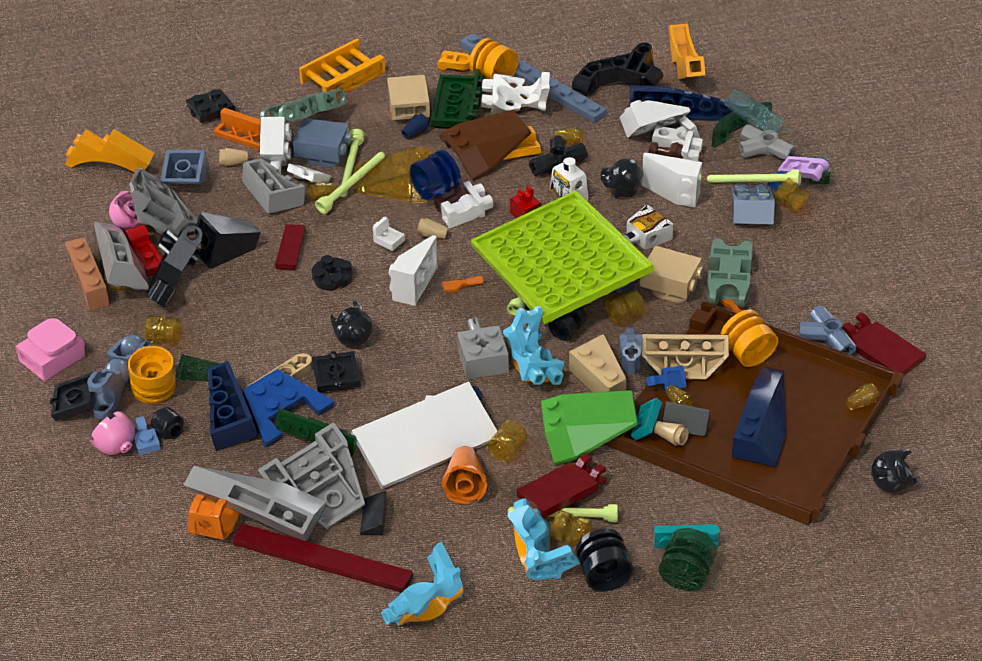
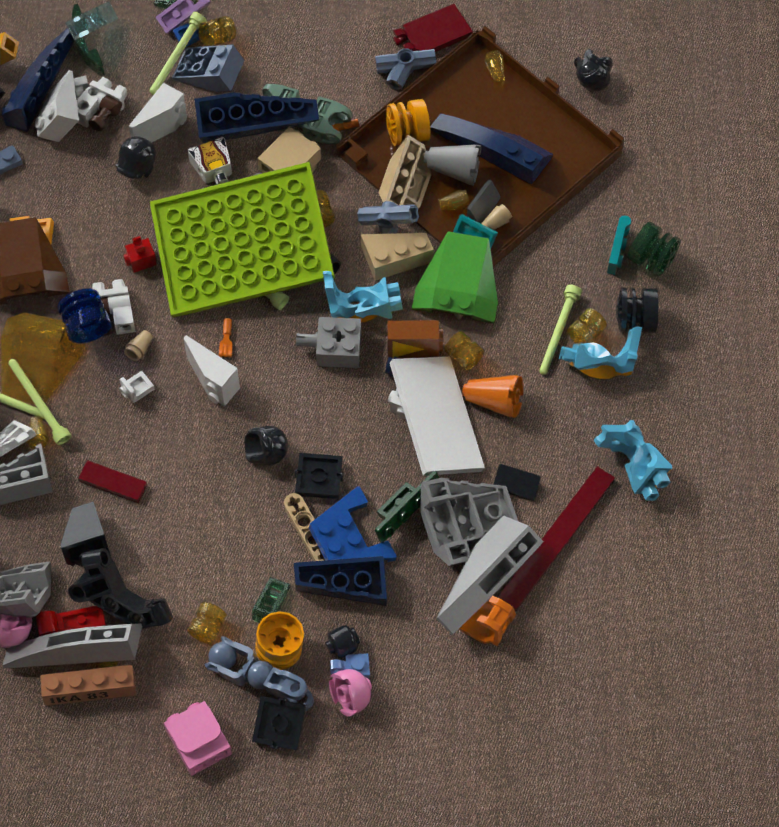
camera: 75 degrees left, 20 degrees up
(339, 267) = (169, 462): black plate -> none
(500, 394) = (414, 338): none -> dark orange brick
(557, 154) = (72, 205): black piece -> none
(563, 486) = (533, 323): dark red tile -> none
(568, 178) = (123, 207): white torso -> none
(571, 135) = (44, 187): clear yellow cone -> none
(668, 377) = (429, 200): blue plate -> none
(699, 227) = (248, 115): none -> dark blue wedge
(720, 386) = (455, 161): none -> light grey cone
(763, 143) = (126, 36): light grey piece -> none

